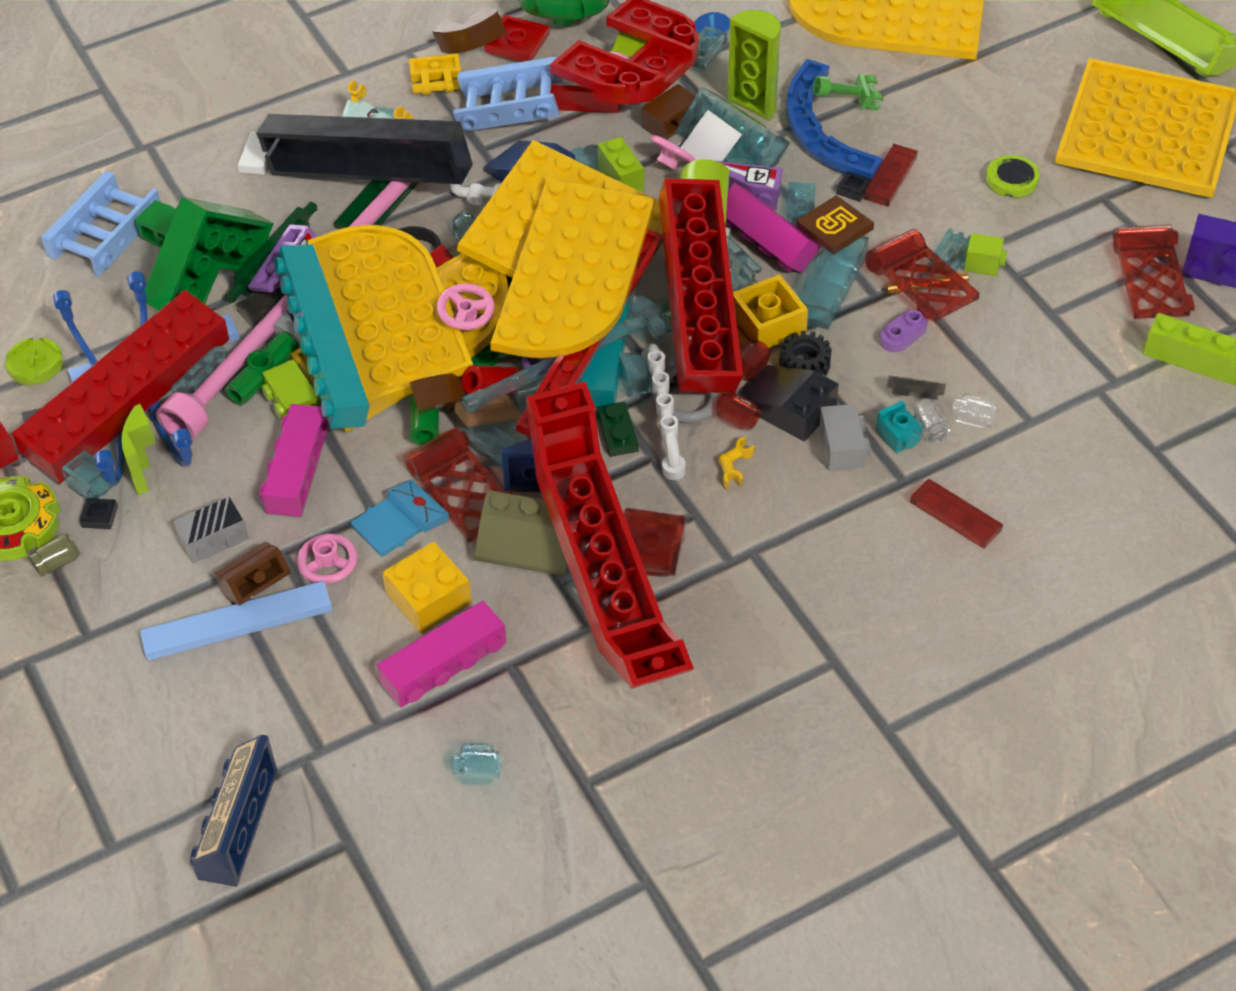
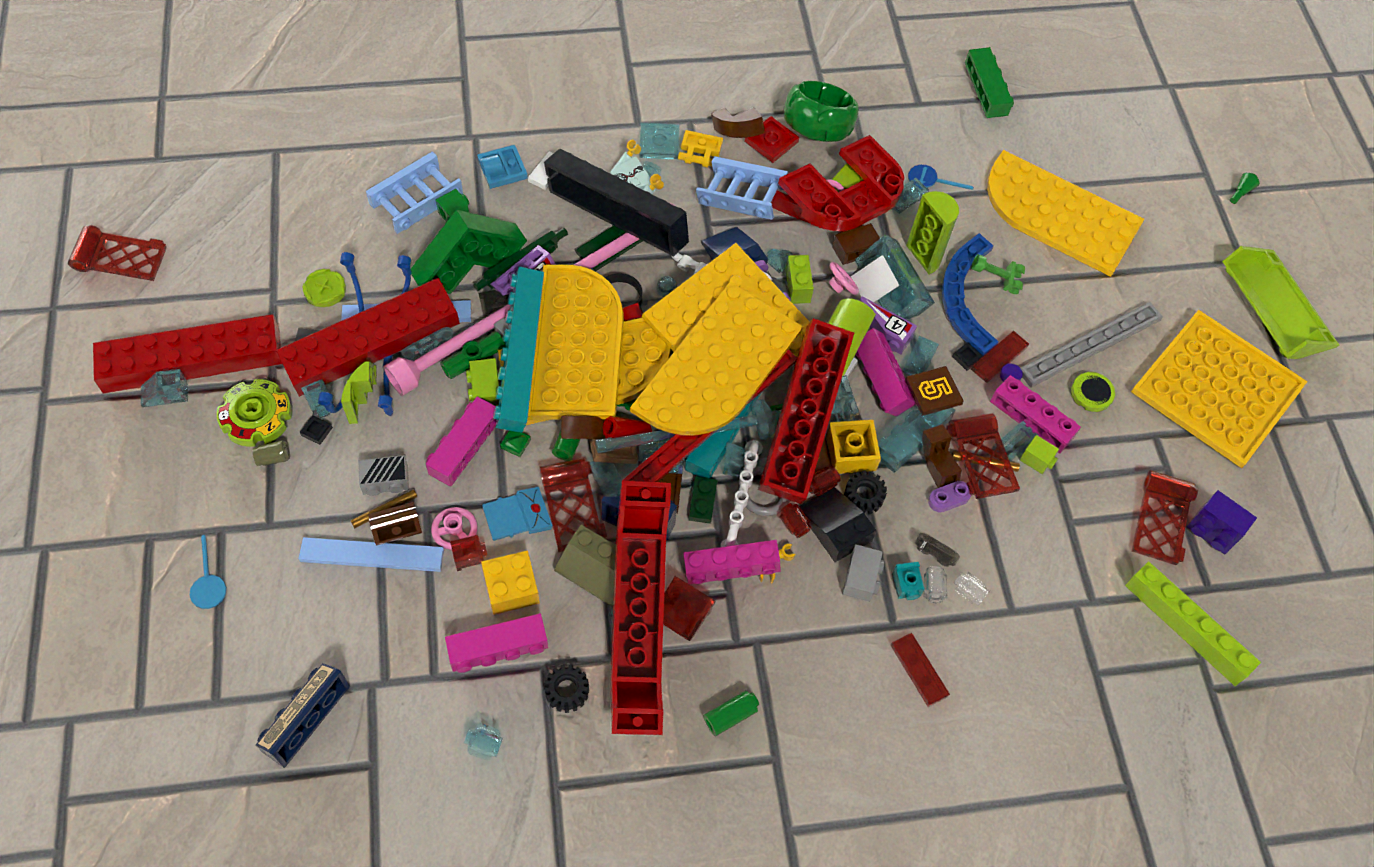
camera: 15 degrees right, 10 degrees up
(41, 731) = (209, 589): none -> dark azure piece
(200, 164) = (502, 166): none -> dark azure plate
(211, 583) = (362, 519): none -> pearl gold bar
(358, 574) = (467, 545): none -> clear red brick
(359, 444) = (515, 443): none -> green tile
(383, 81) = (659, 141): none -> clear light blue plate
(466, 309) = (630, 374): bright pink piece -> none
(553, 689) = (556, 678): none -> black tyre
(687, 472) = (732, 562): none -> dark pink brick
(760, 630) = (731, 712): none -> green brick
(874, 297) = (938, 458): none -> reddish brown brick
(912, 188) = (1011, 369): none -> dark purple tile
(941, 210) = (1042, 417): none -> dark pink brick
(985, 132) = (1090, 344): none -> light grey tile

